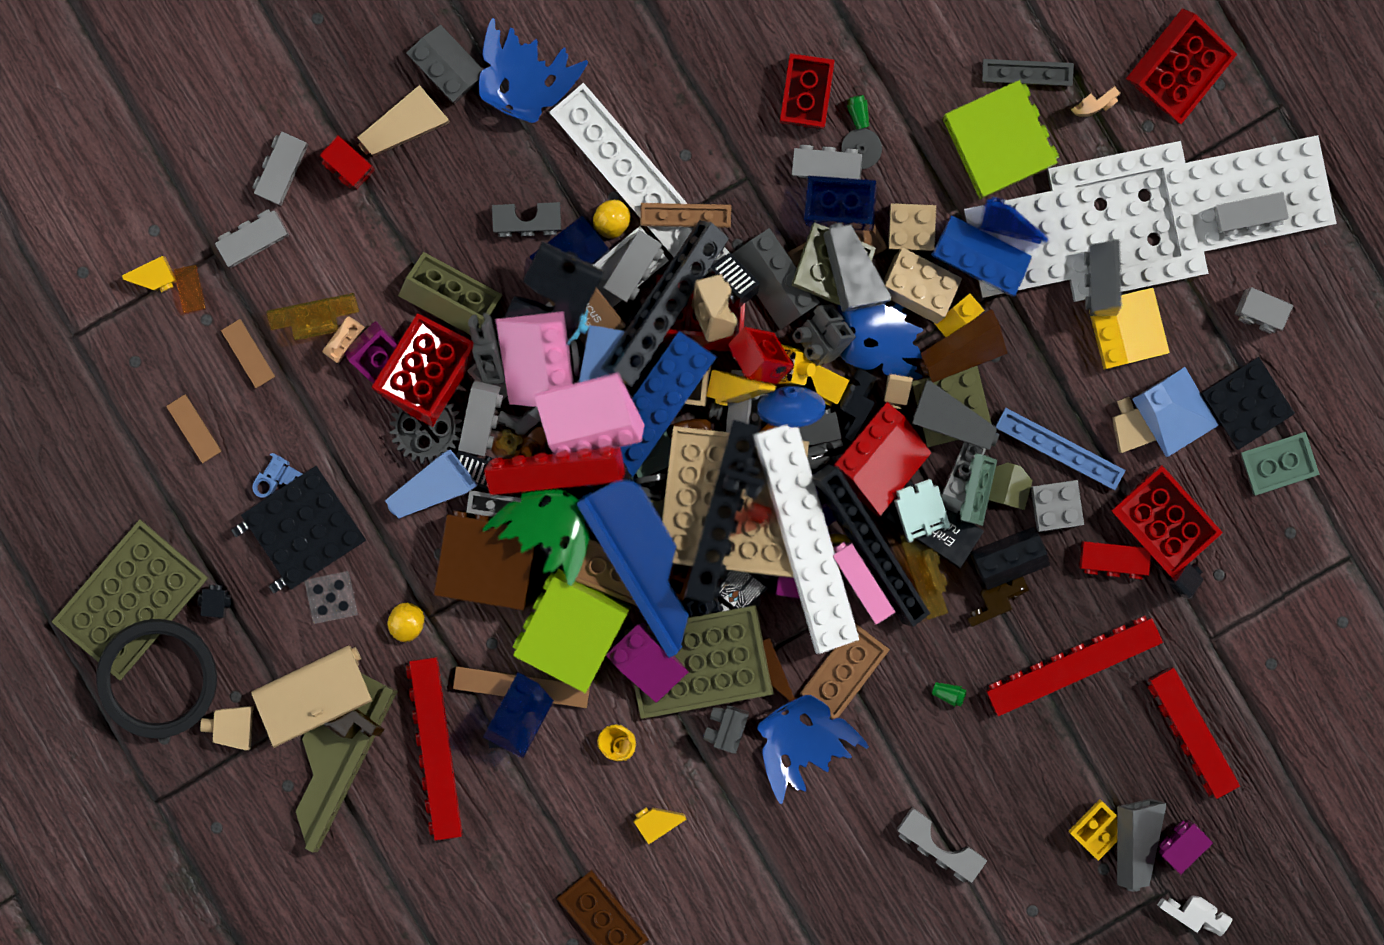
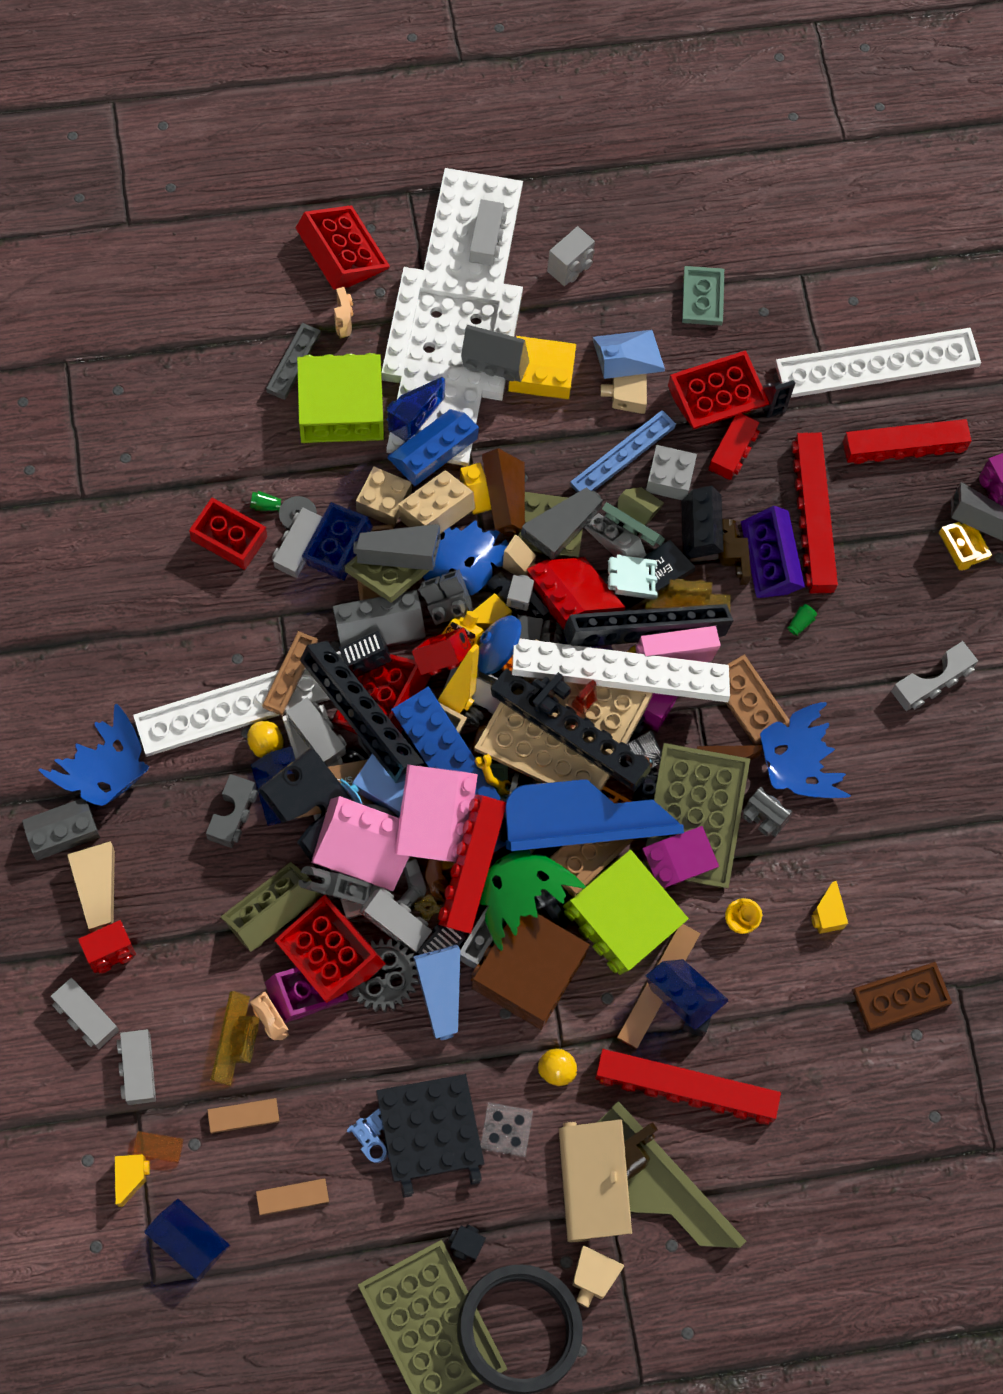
camera: 75 degrees left, 20 degrees down
(118, 351) = (187, 1239): none -> clear blue slope
(660, 442) = (490, 779): none -> yellow arm
(712, 309) = (381, 675): tan slope -> none
(857, 406) = (520, 592): none -> light grey brick
(1010, 639) = (773, 553): none -> dark purple slope
(1248, 403) = (643, 301): black plate -> none
(1274, 673) = (879, 362): none -> white plate

